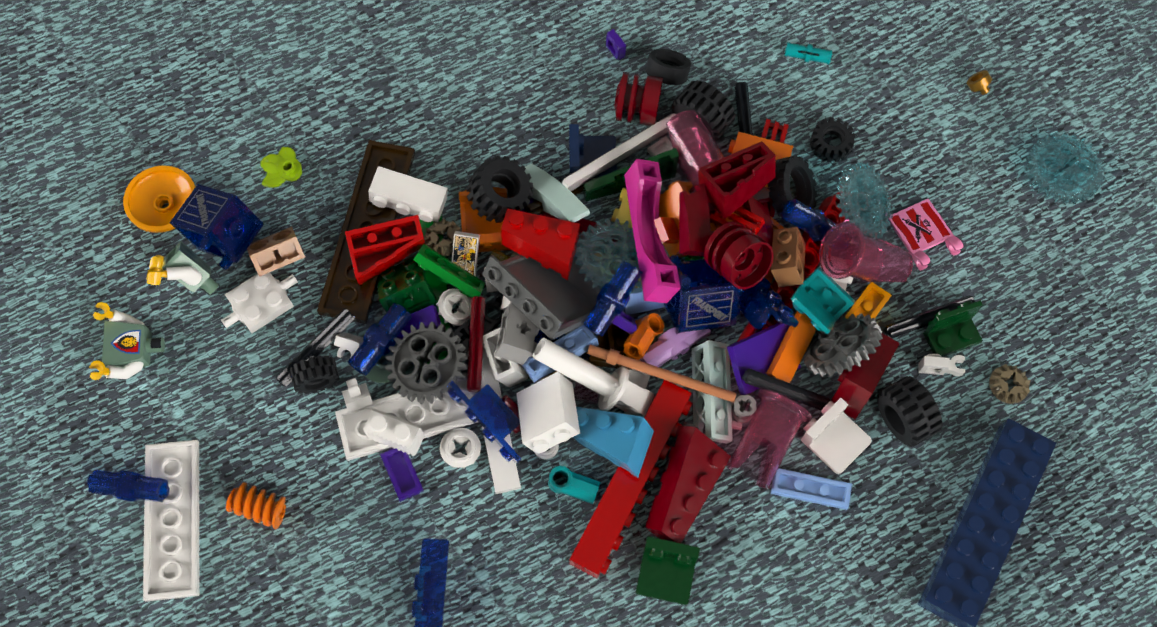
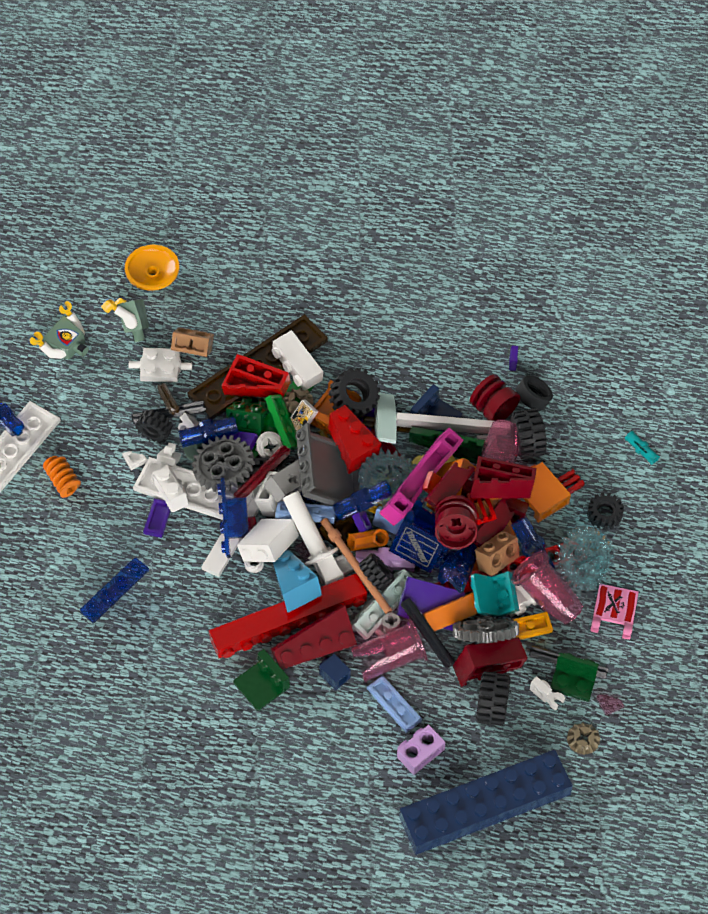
camera: 40 degrees right, 10 degrees down
(217, 224) = (170, 302): clear blue container -> none
(281, 168) = (238, 297): lime plate -> none
(304, 333) = (168, 398): none -> dark brown axle
(320, 426) = (134, 459): none -> white tile
(460, 436) = (196, 524): white gear -> none
(576, 486) = (250, 595): teal piece -> none
(687, 364) = (376, 571): none -> black tyre
(728, 501) = (334, 671): none -> dark blue brick
(743, 108) = (563, 453): black axle -> none
(802, 179) = (559, 510): black tyre -> none
(835, 437) = (436, 683): white bracket -> none
(887, 519) = (424, 752): none -> lavender brick
(1001, 331) = (609, 704): none -> clear pink tile

